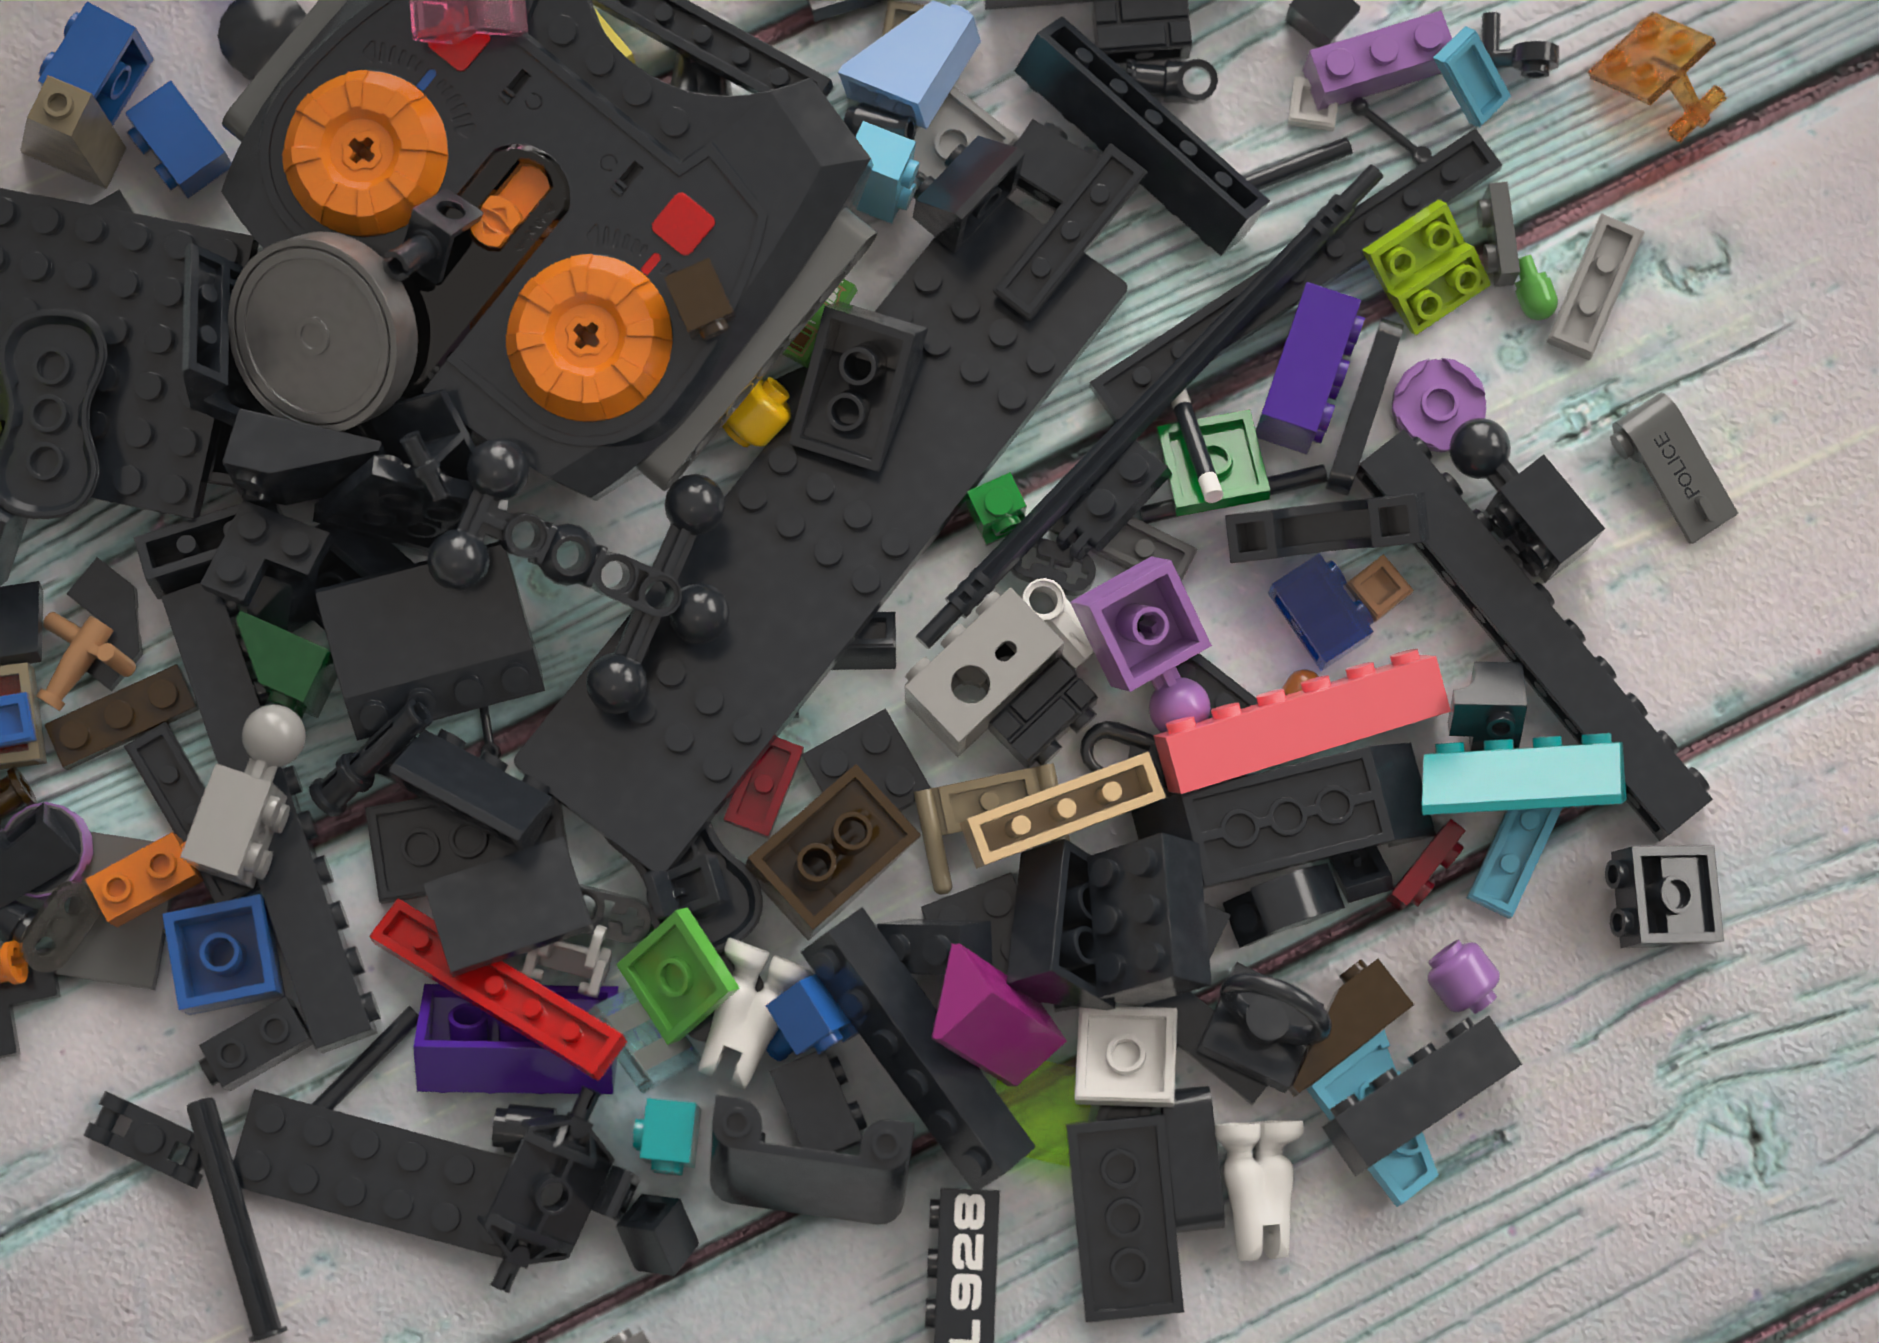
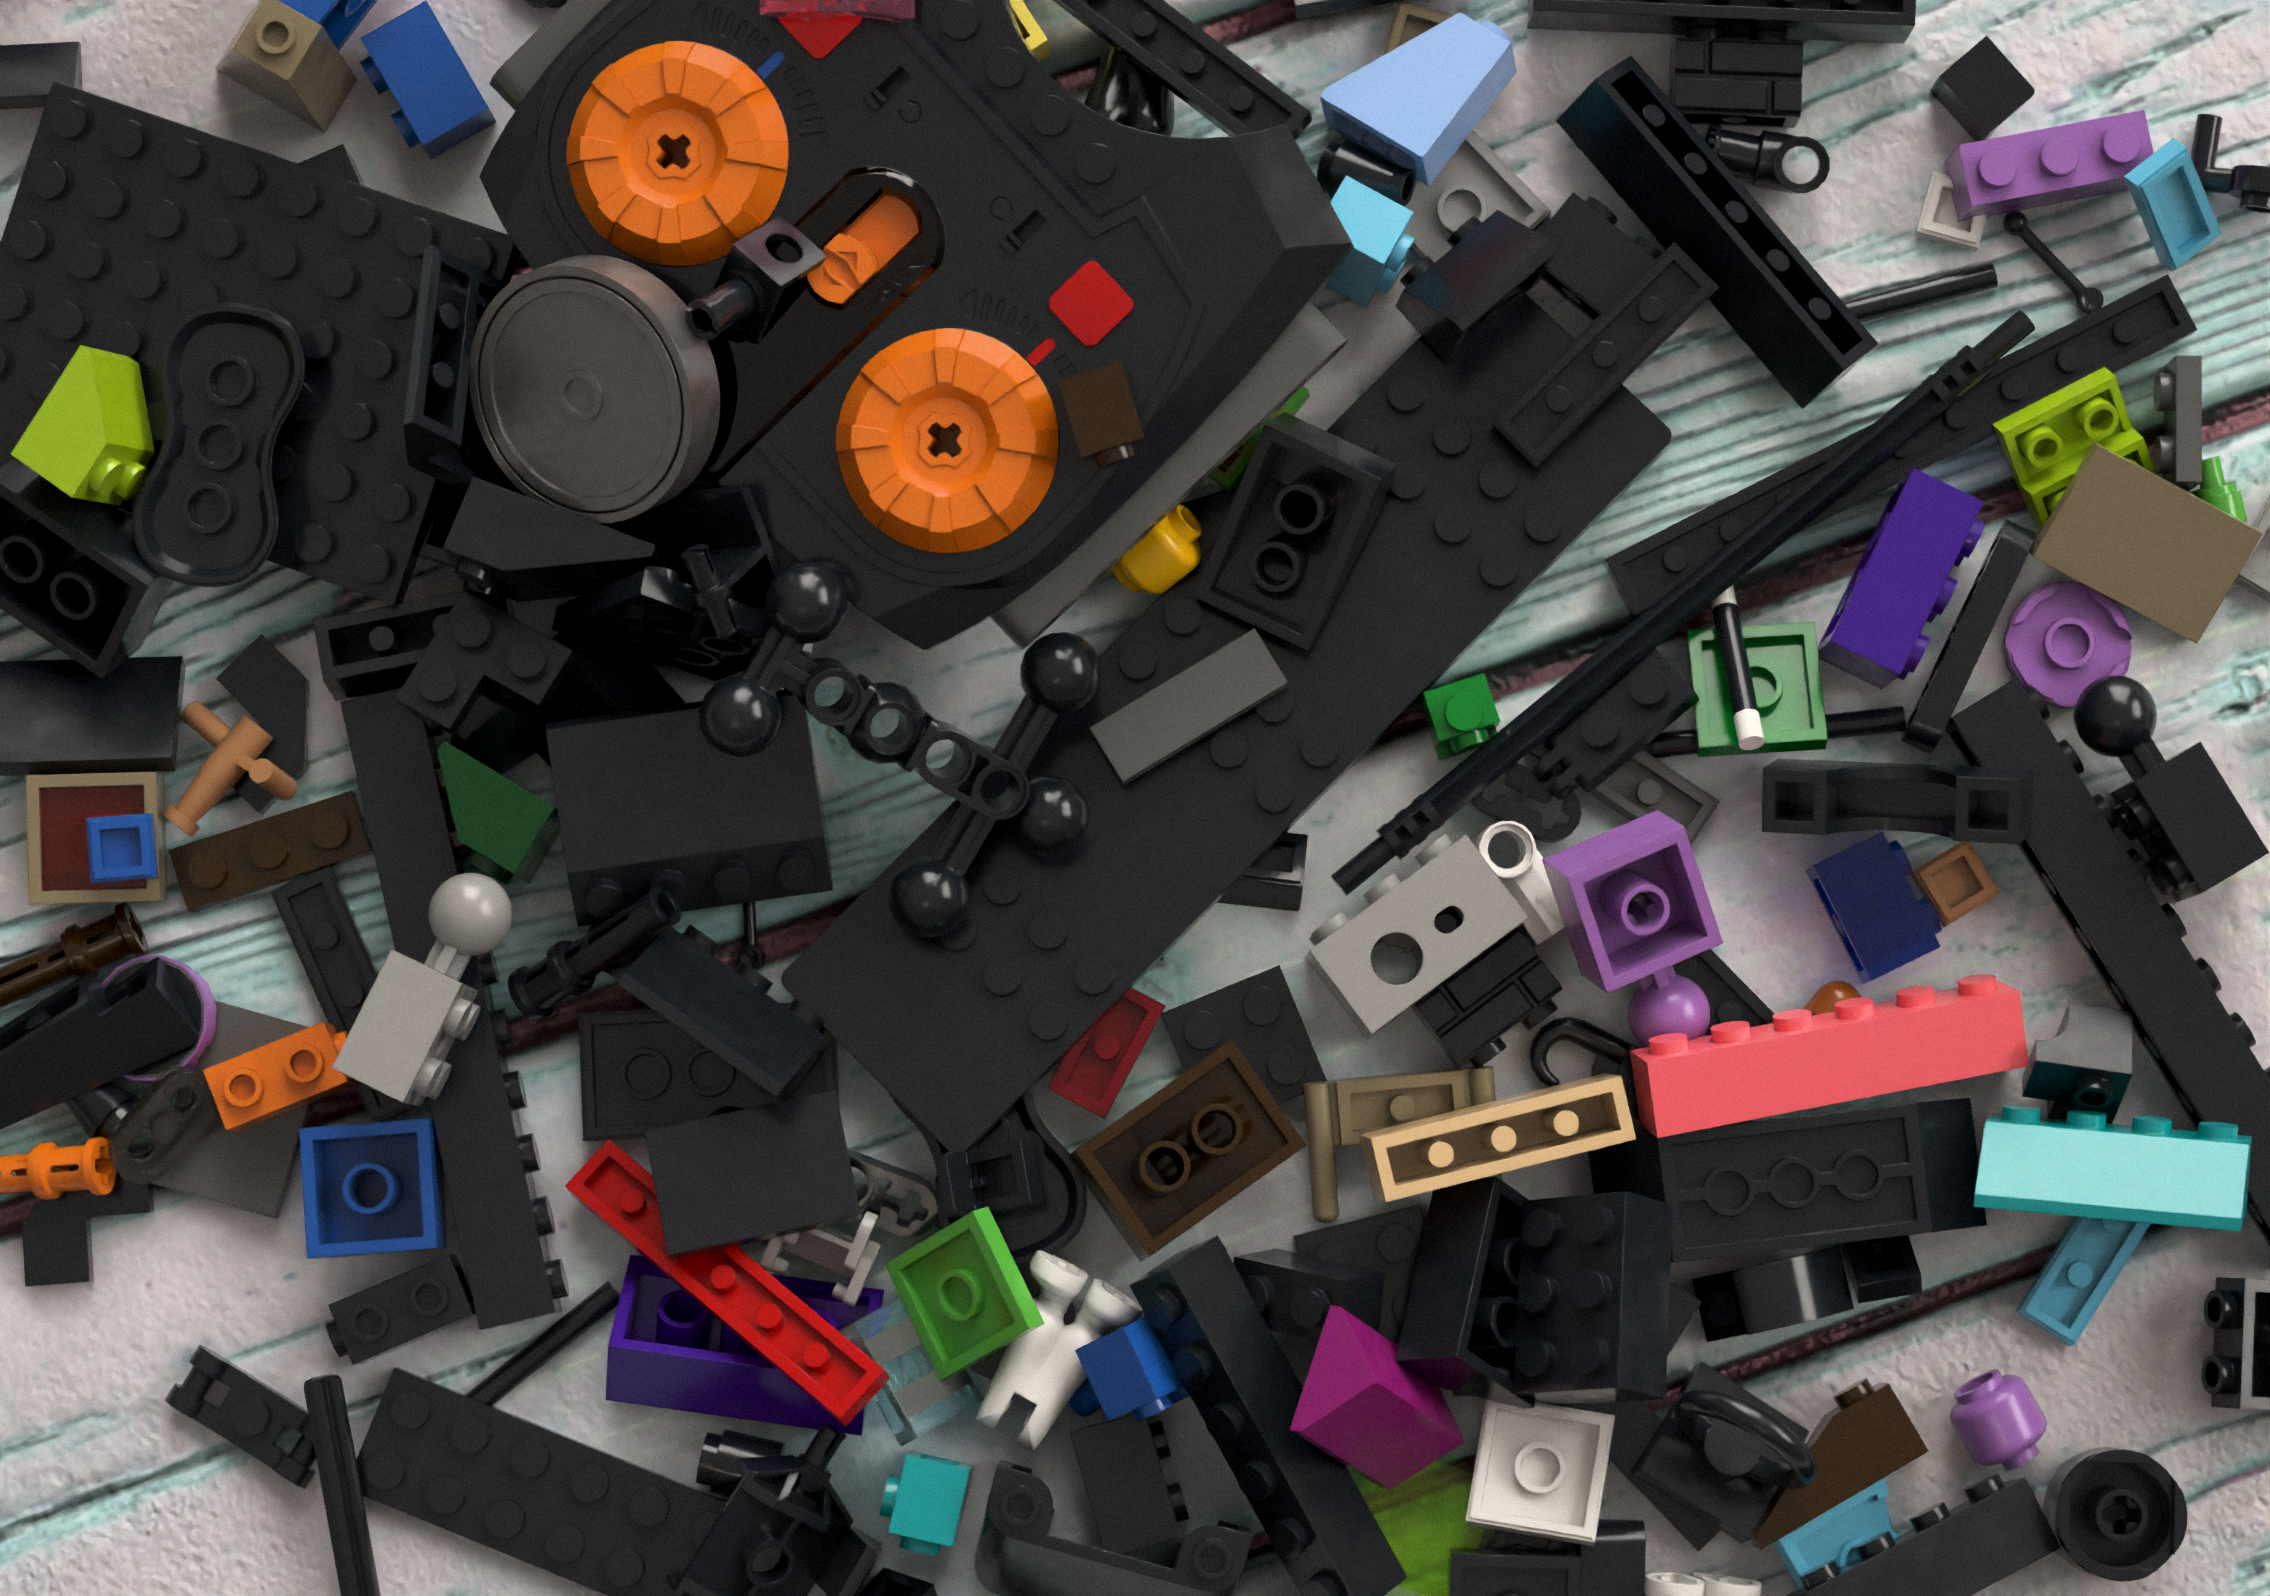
camera: 10 degrees right, 5 degrees up
(794, 523) = (1189, 706): none -> dark grey tile
(1440, 851) = (1989, 1247): dark red plate -> none
(1485, 321) = (2145, 542): none -> dark tan tile
(1574, 1012) = (2141, 1541): none -> black brick

